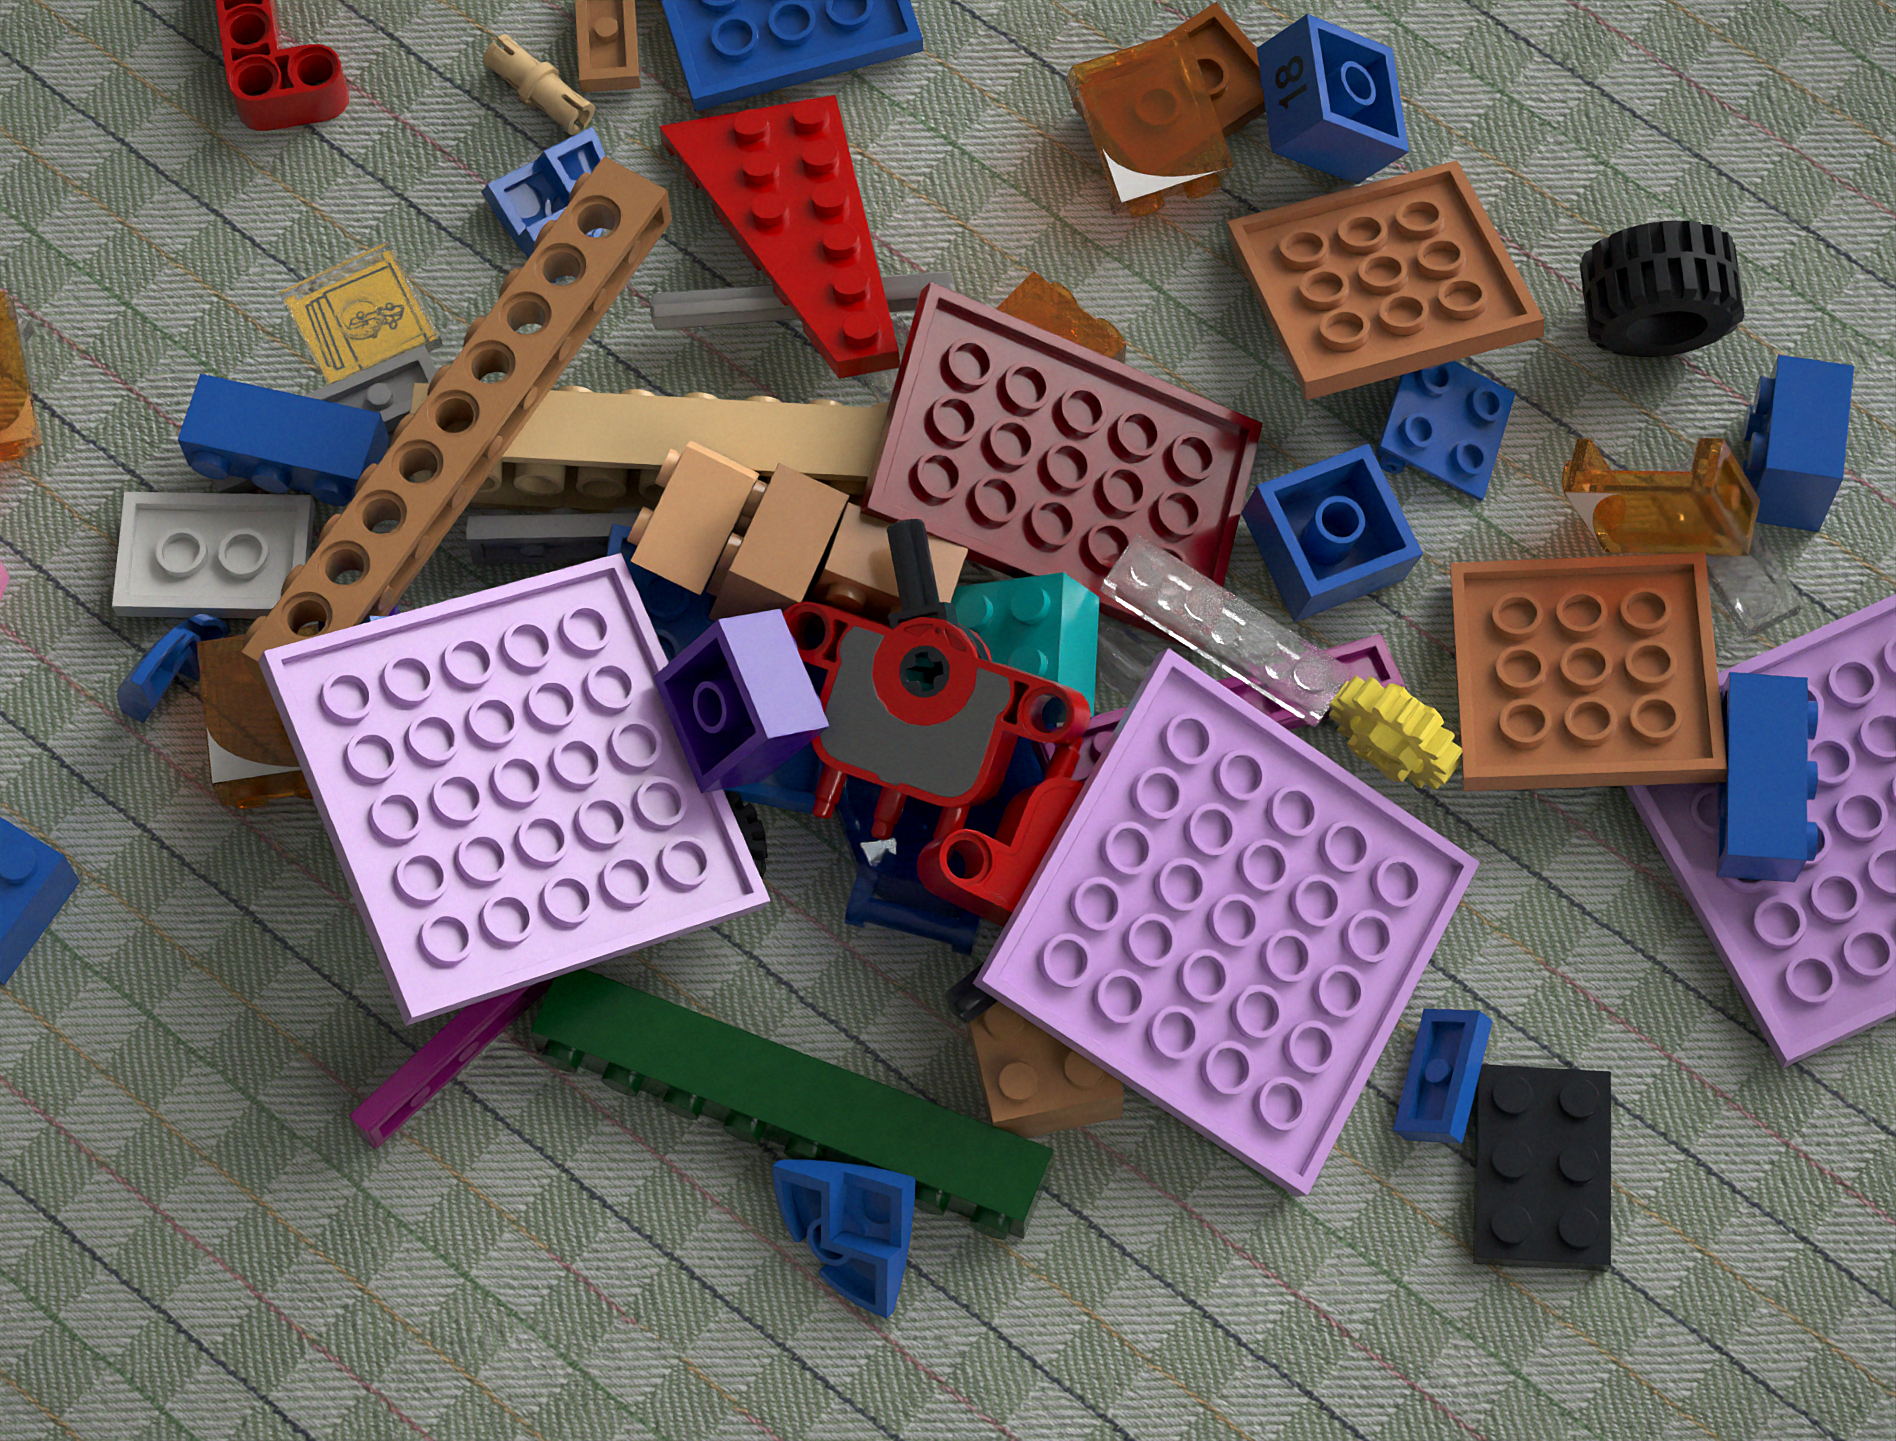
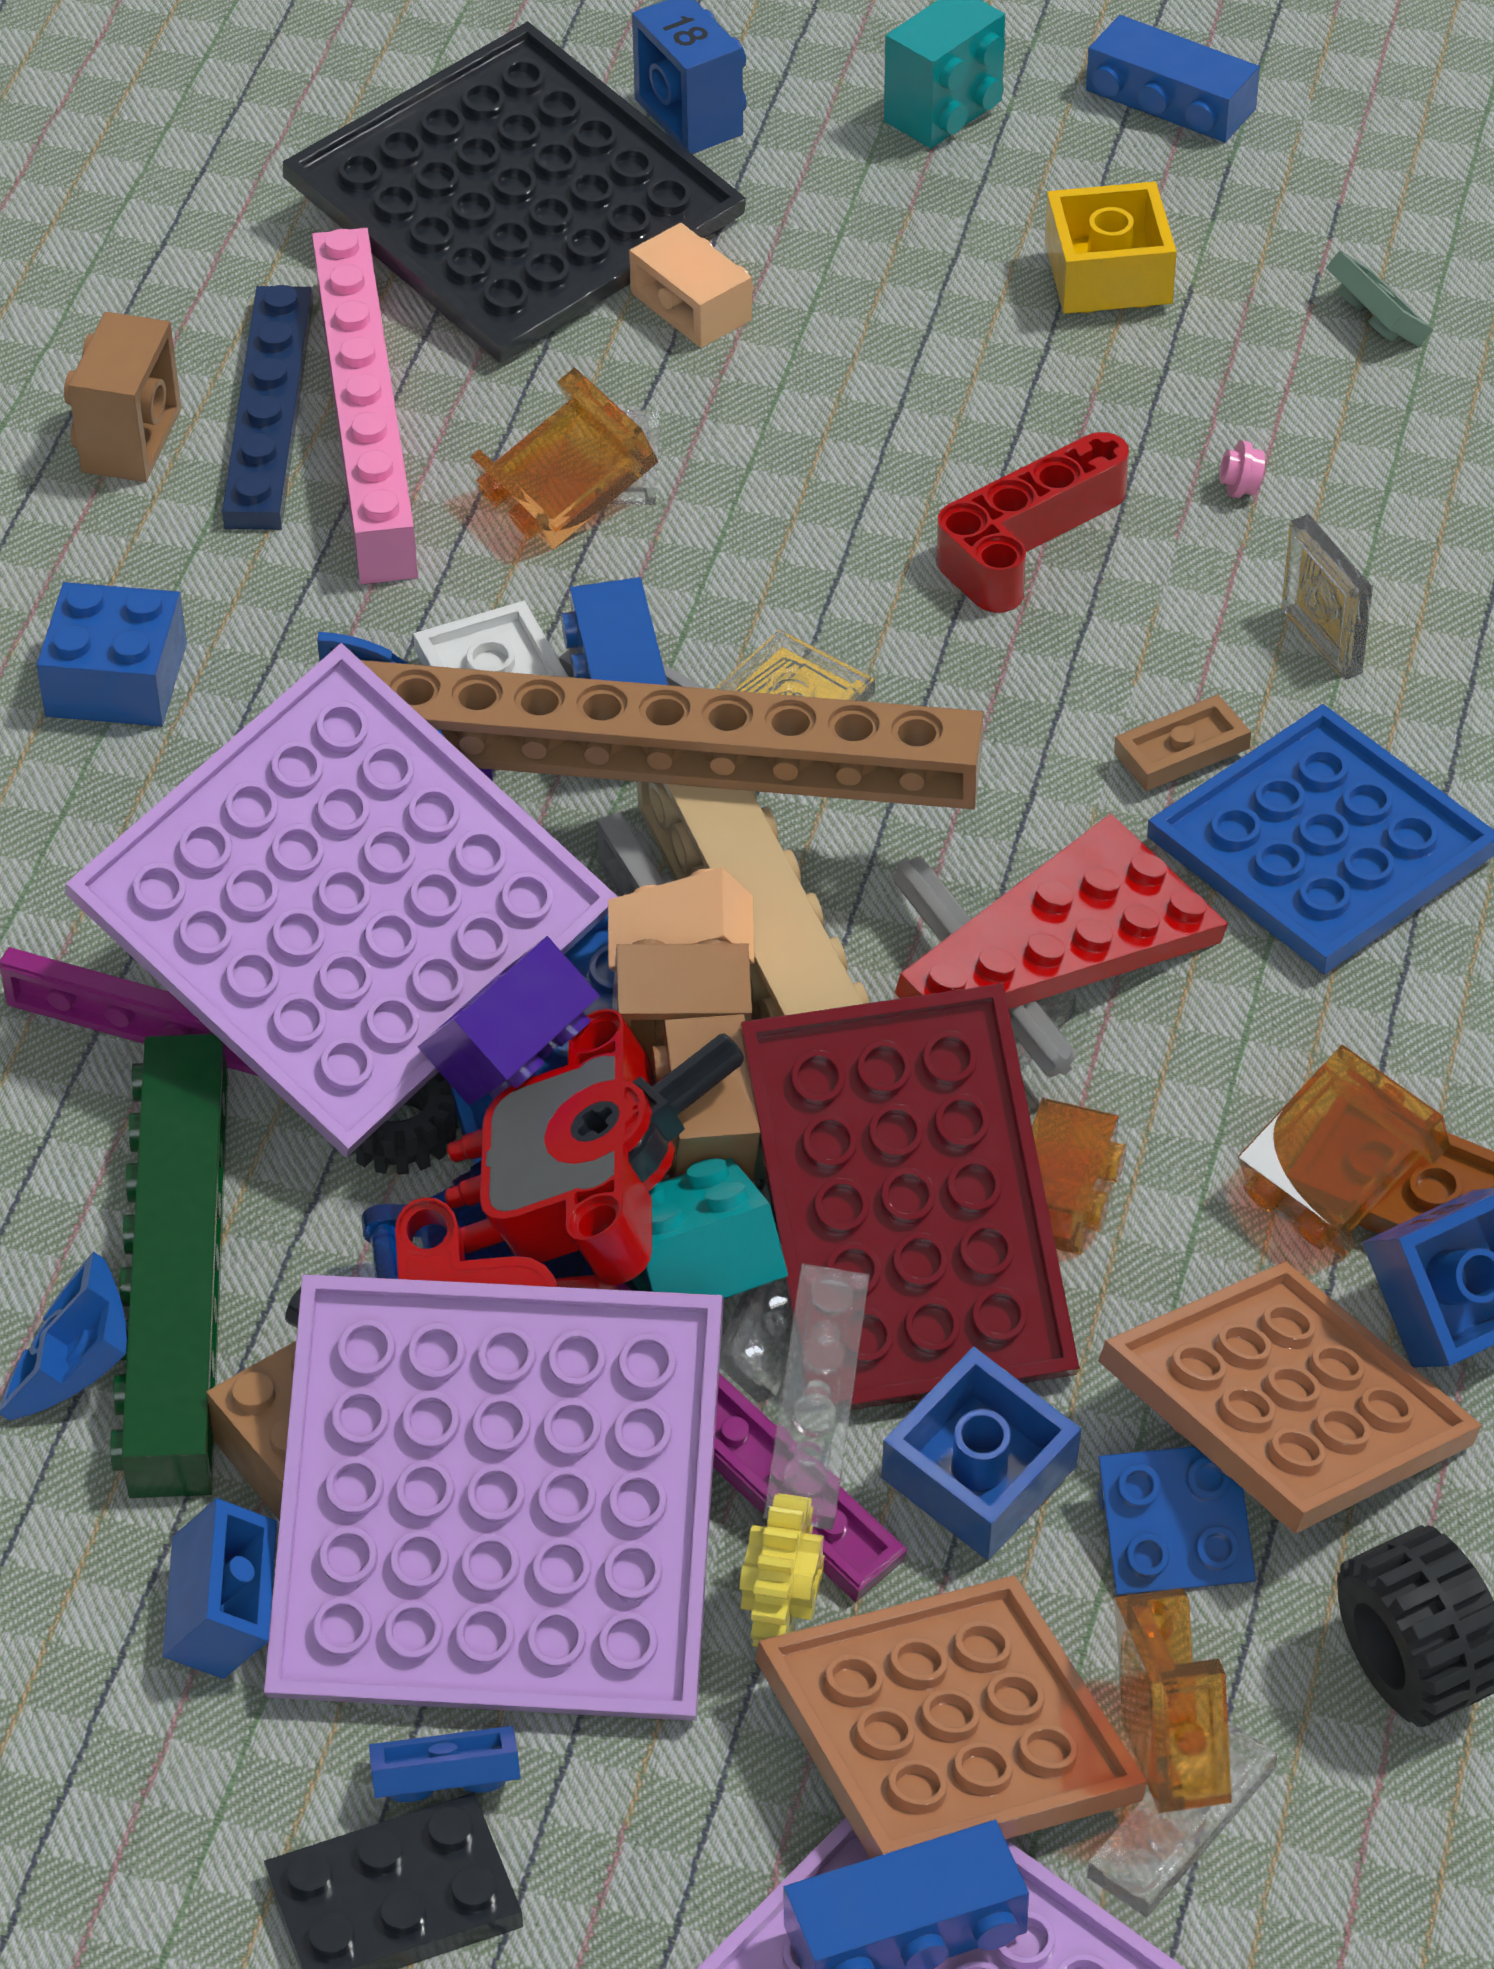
camera: 65 degrees right, 20 degrees down
(538, 84) = (1099, 719): tan pin -> none
(542, 188) = (1011, 779): blue brick -> none
(1197, 1190) = (220, 1588): none -> blue brick
(1798, 440) = (1323, 1817): blue brick -> none

